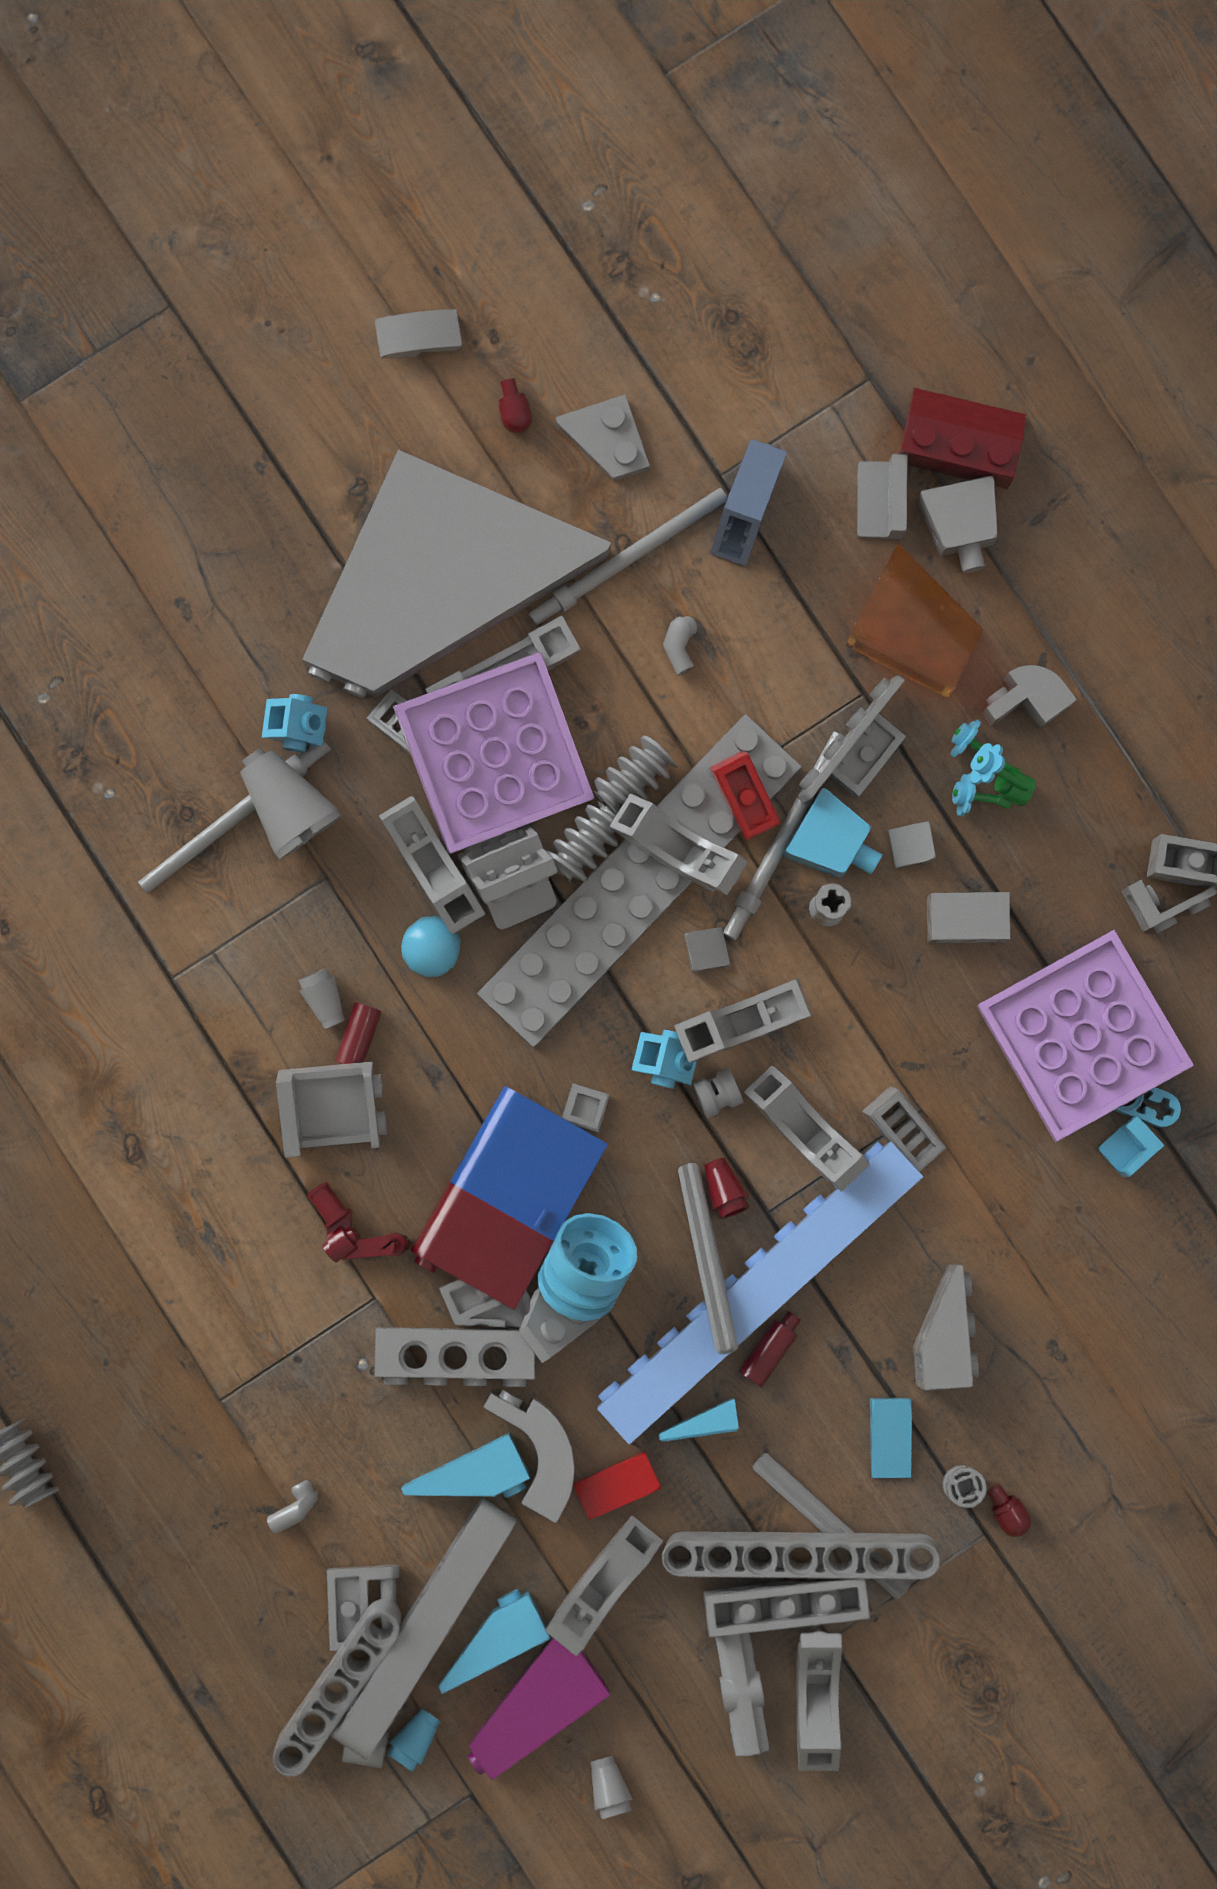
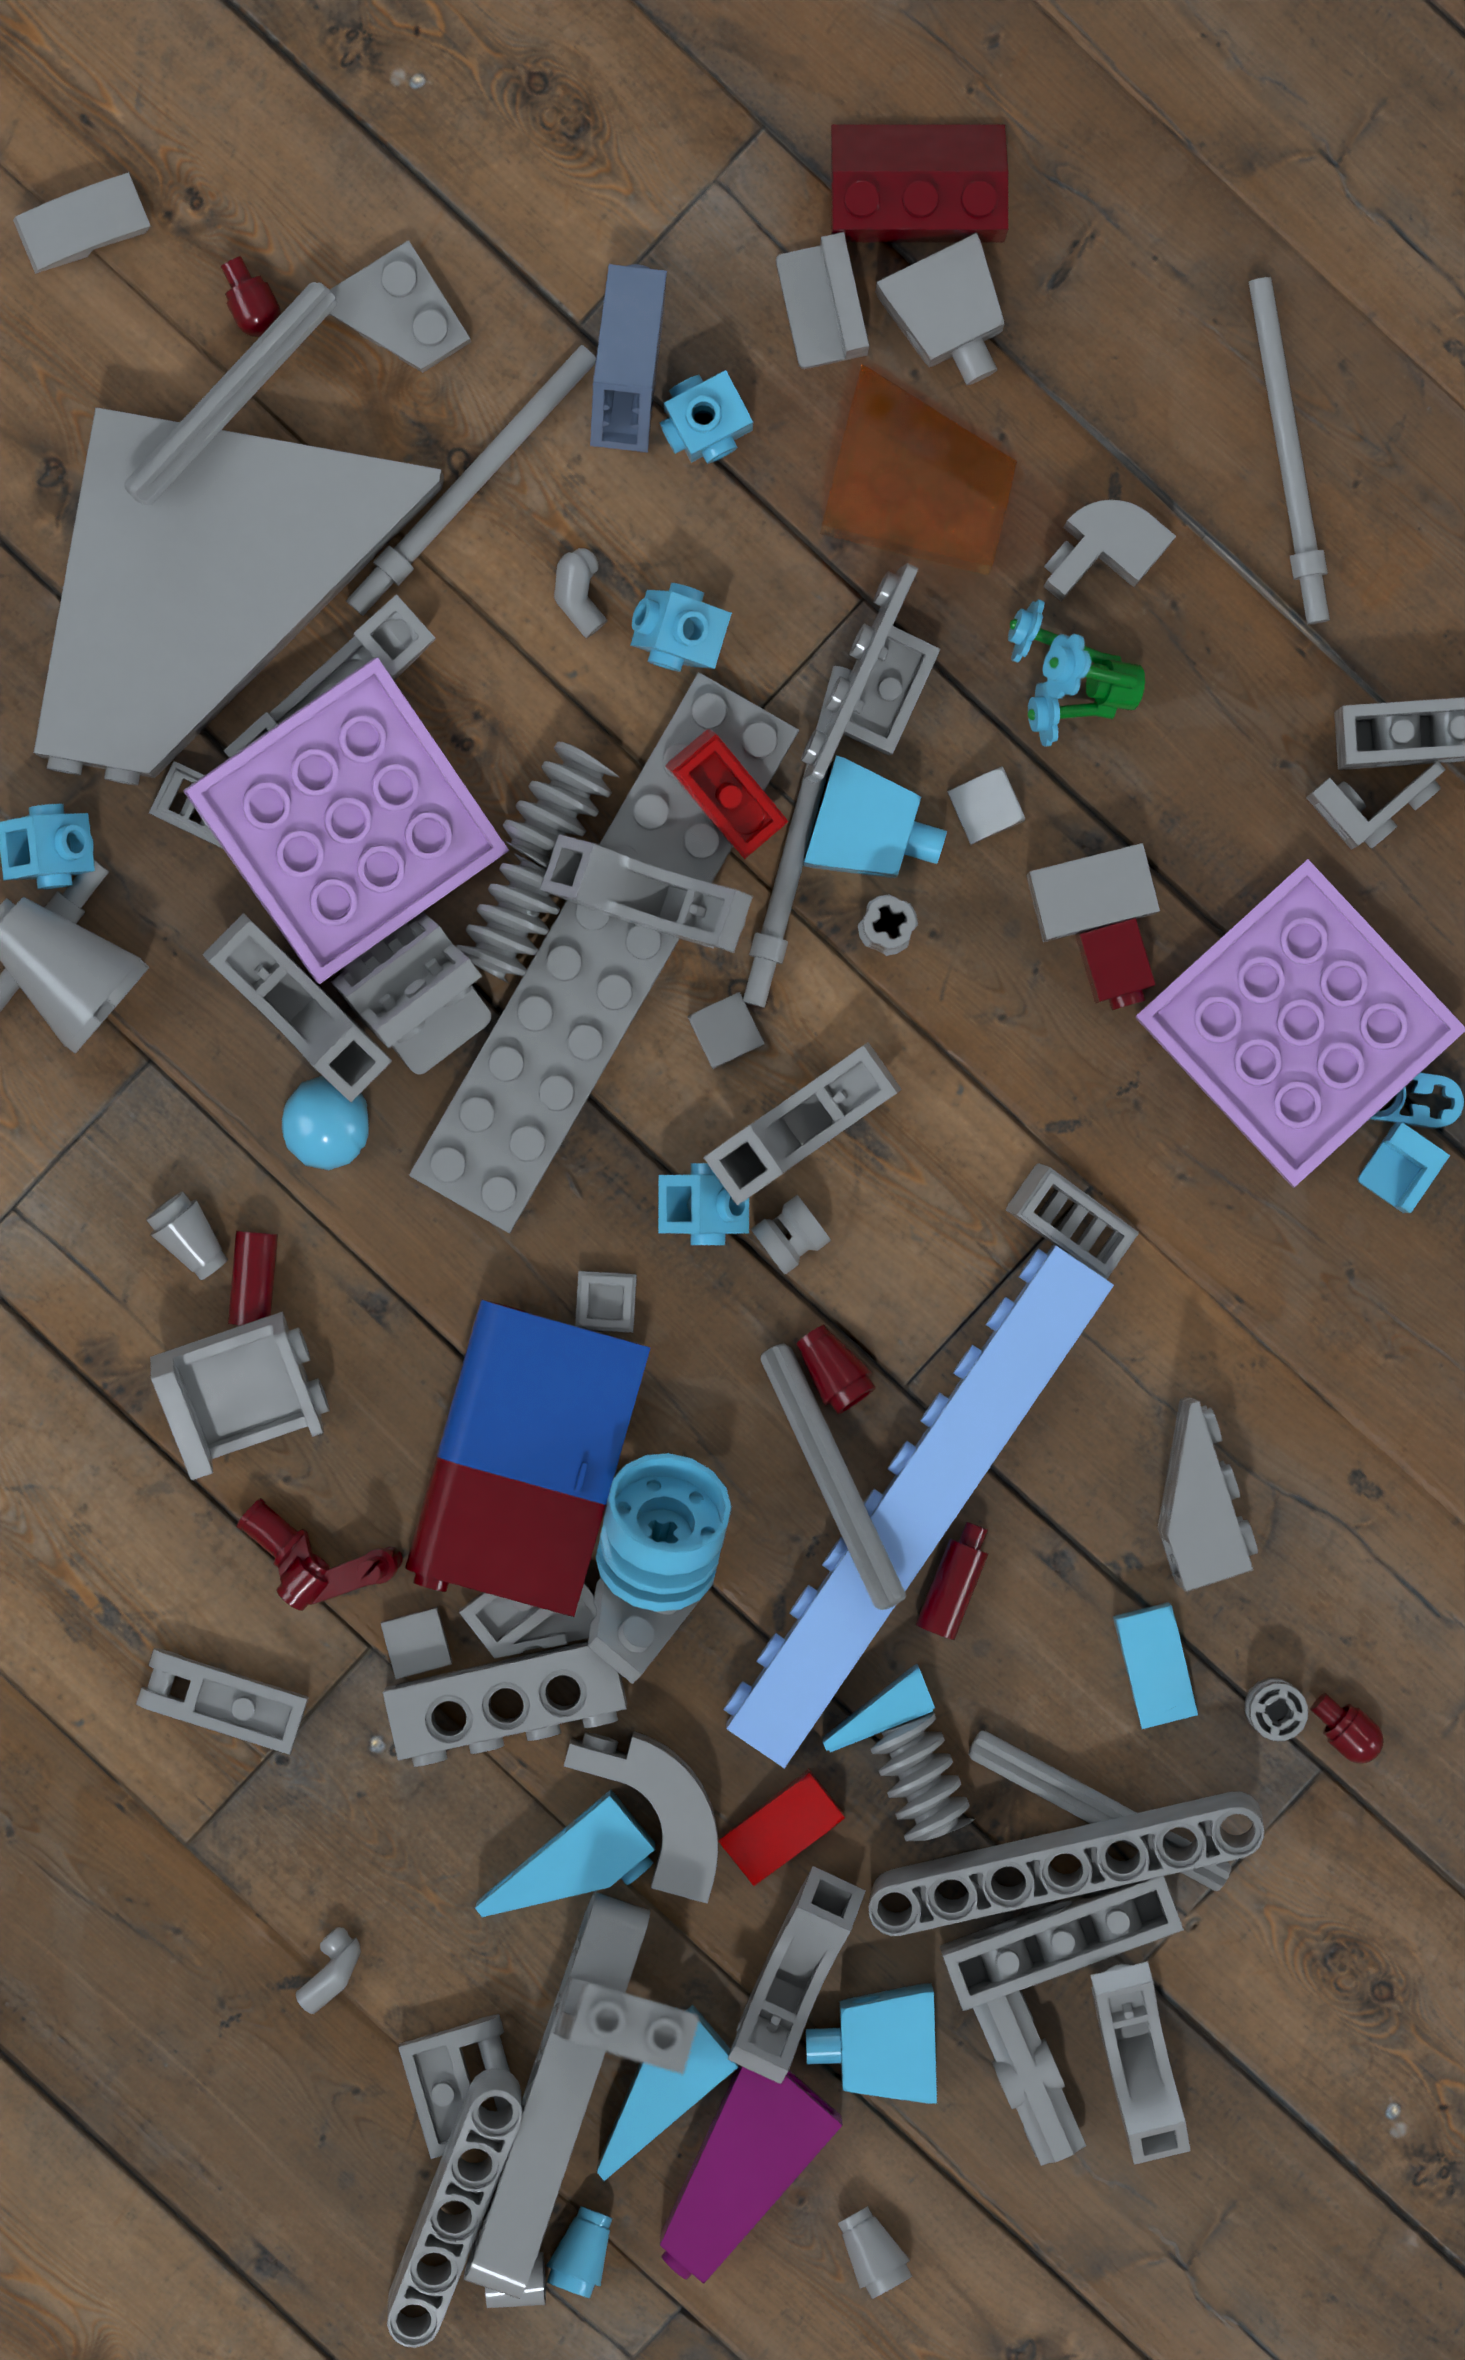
camera: 10 degrees left, 5 degrees up
(269, 1310) = (224, 1702): none -> light grey plate
(405, 1302) = (416, 1642): none -> light grey tile
(484, 1590) = (626, 2025): none -> light grey panel
(487, 461) = (230, 393): none -> light grey axle
(649, 1647) = (883, 2044): none -> medium azure torso
(718, 1475) = (922, 1779): none -> light grey piece
(740, 681) = (679, 628): none -> medium azure brick
(799, 542) = (712, 397): none -> medium azure brick
(806, 1129) = (930, 1256): light grey arch -> none
(973, 967) = (1116, 963): none -> dark red brick
(1157, 738) = (1308, 562): none -> light grey bar

